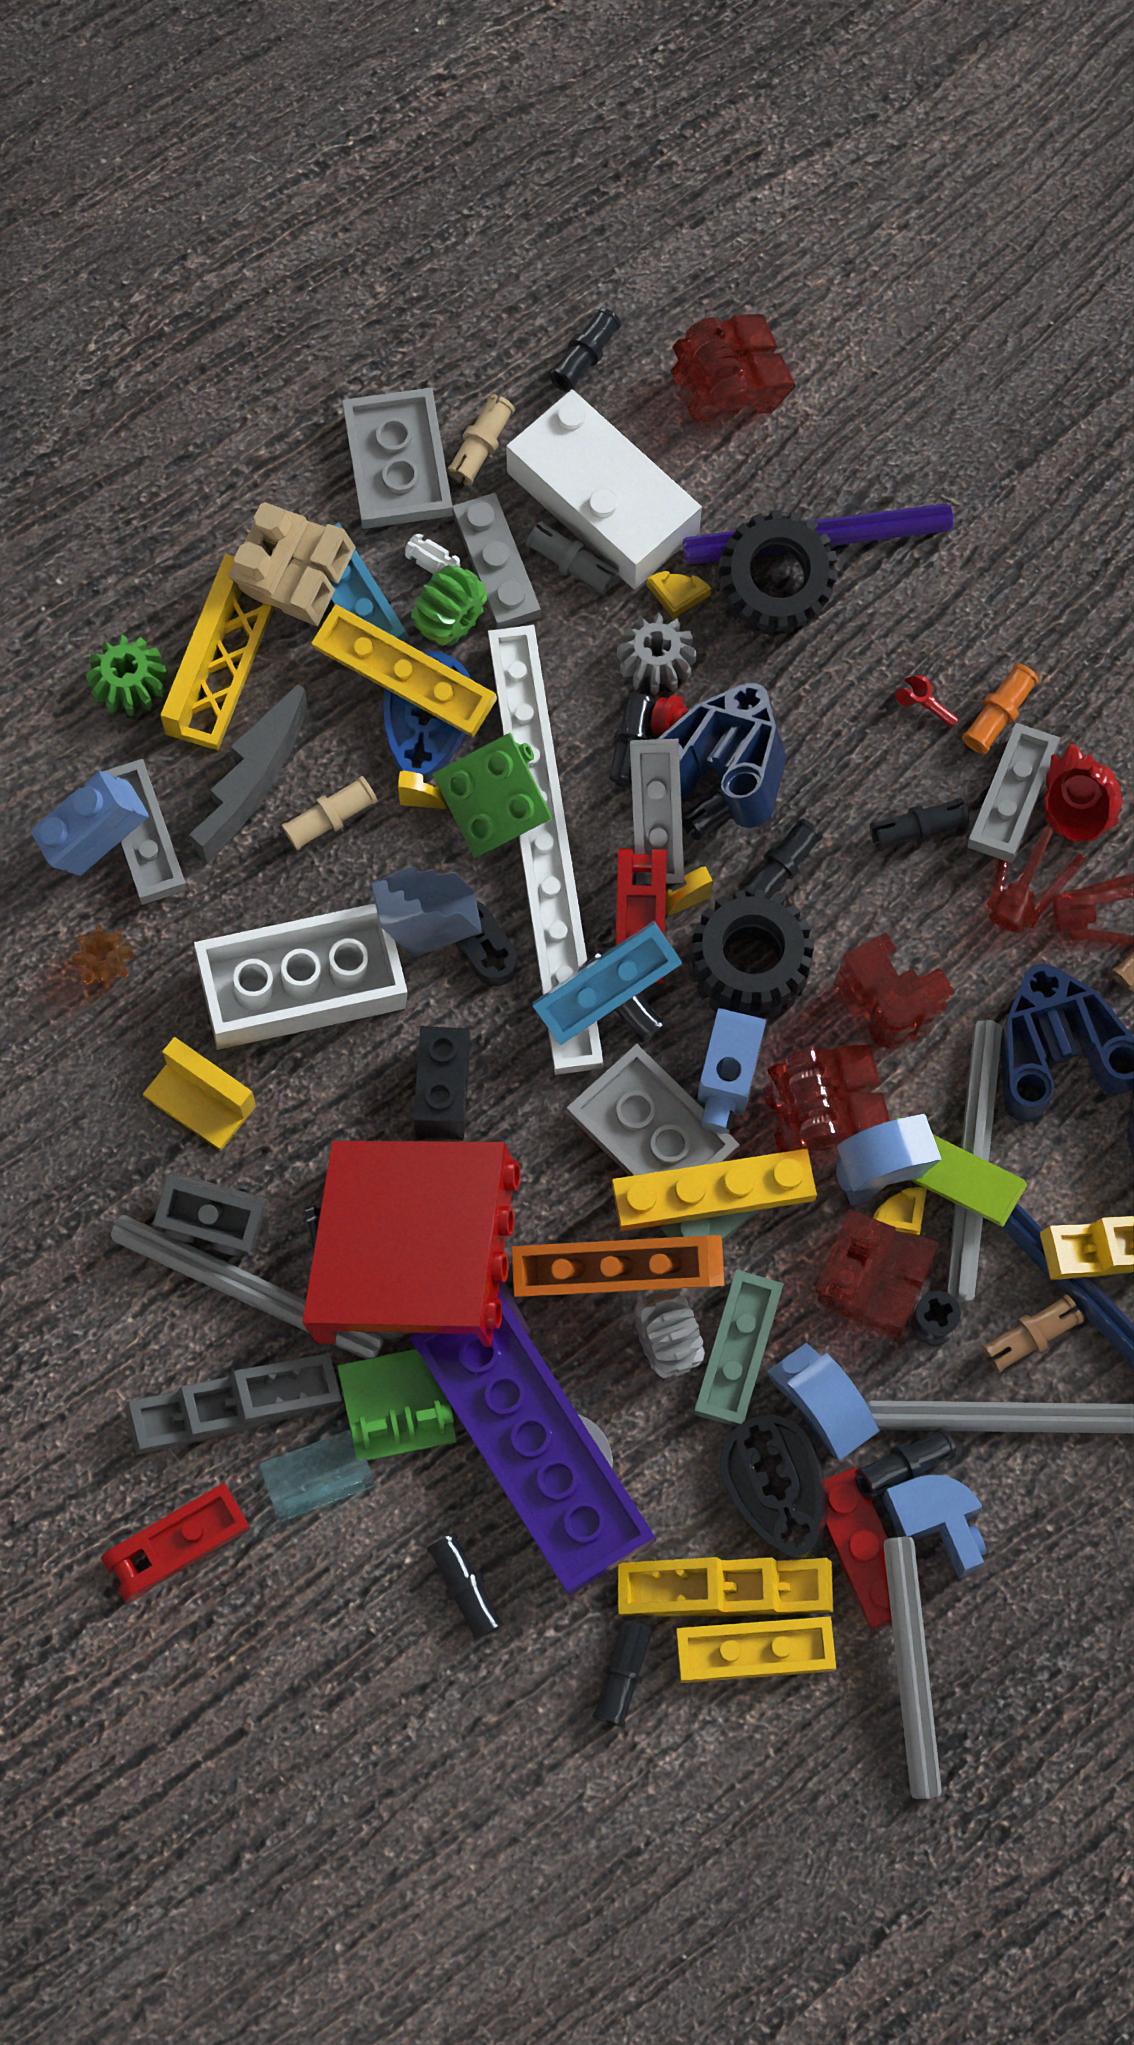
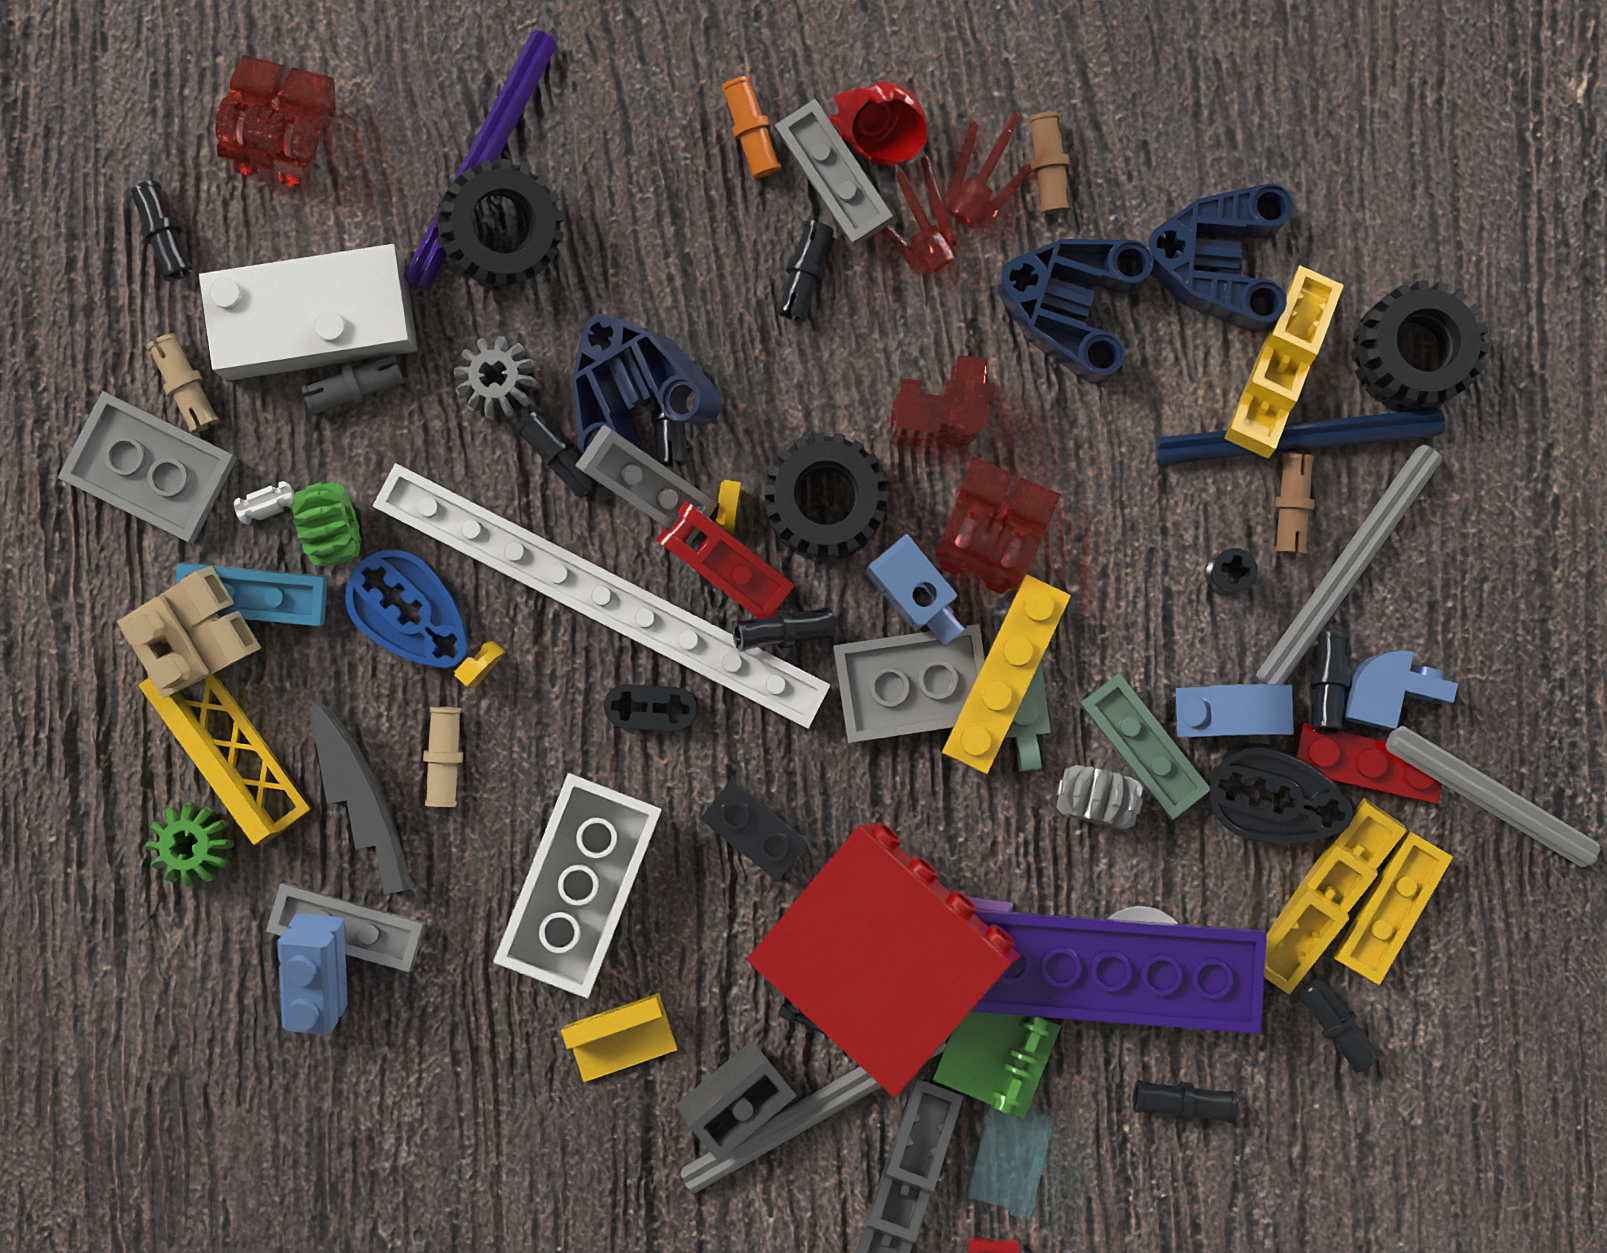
camera: 55 degrees left, 15 degrees up
(92, 947) = (426, 1040): clear orange gear -> none
(404, 670) = (361, 606): yellow plate -> none
(426, 909) = (603, 735): sand blue piece -> none
(493, 794) = (530, 609): bright green hinge -> none
(496, 561) = (307, 450): light grey plate -> none
(607, 983) = (774, 638): dark azure plate -> none
(618, 1265) = (1023, 802): orange brick -> none
(667, 713) = (560, 408): red plate -> none
(677, 591) = (447, 316): yellow tile -> none
(783, 861) = (758, 410): black pin -> none
(862, 1252) = (1176, 598): clear red hips -> none
(885, 1156) = (1081, 516): medium blue brick -> none
(904, 1211) = (1121, 533): yellow tile -> none
(922, 695) = (692, 183): red hand -> none
(973, 1183) = (1123, 471): lime tile -> none
(976, 1140) = (1120, 442): light grey axle -> none

